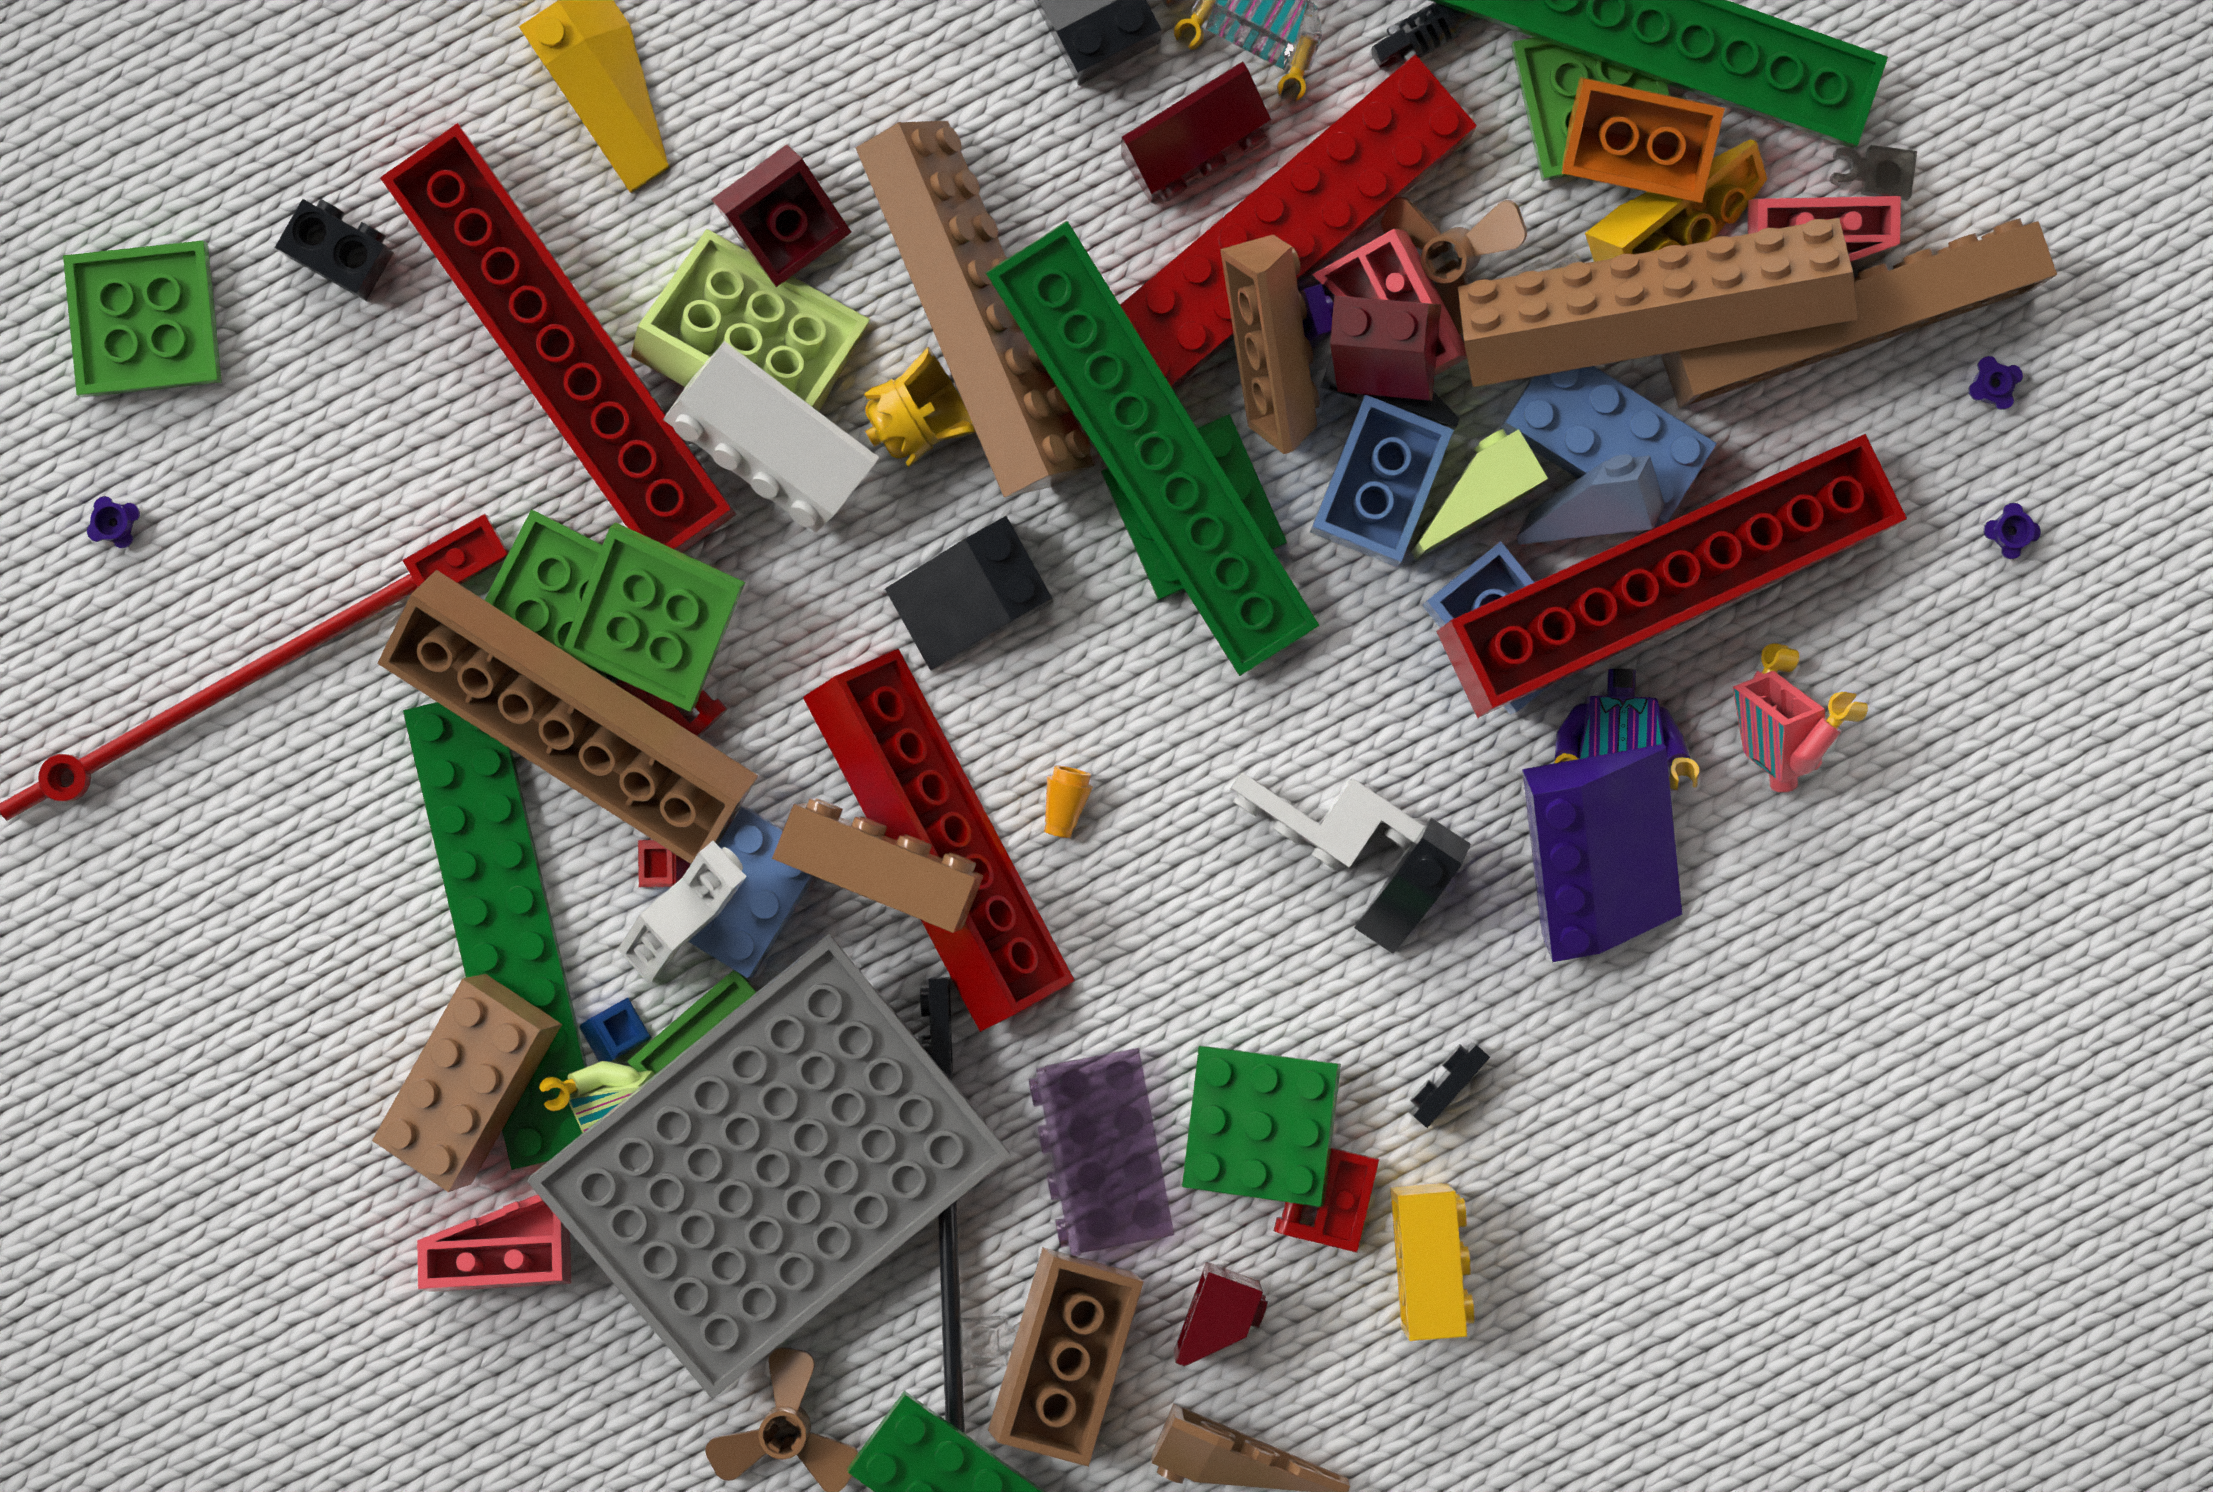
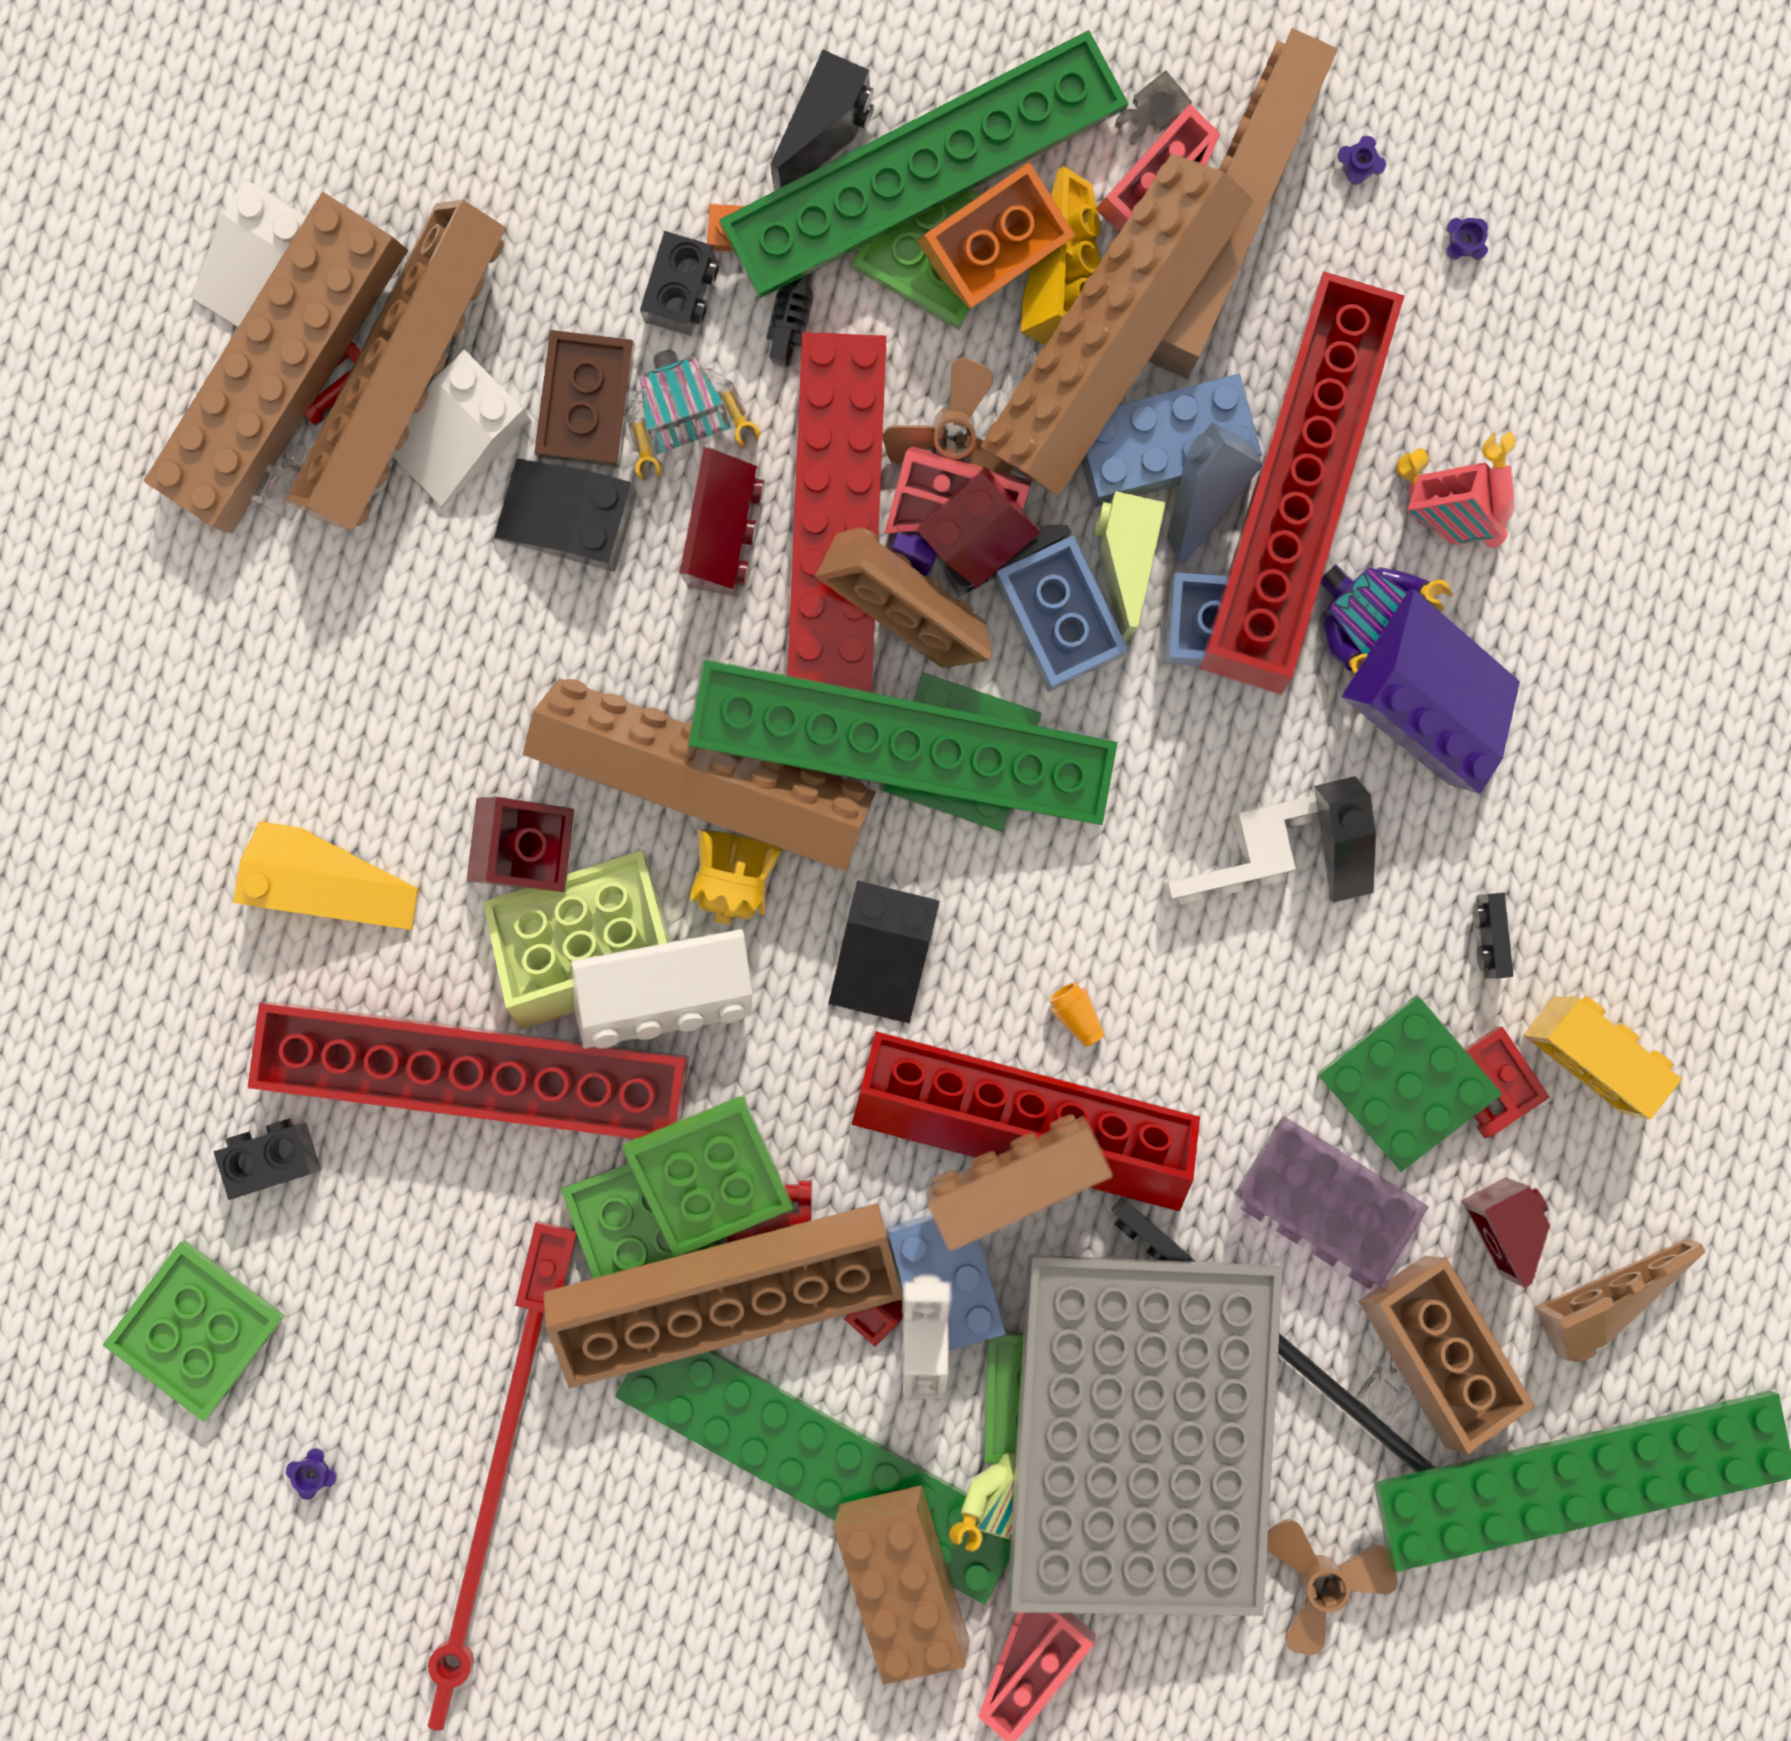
camera: 50 degrees left, 0 degrees up
(614, 1031) = (956, 1451): blue slope -> none

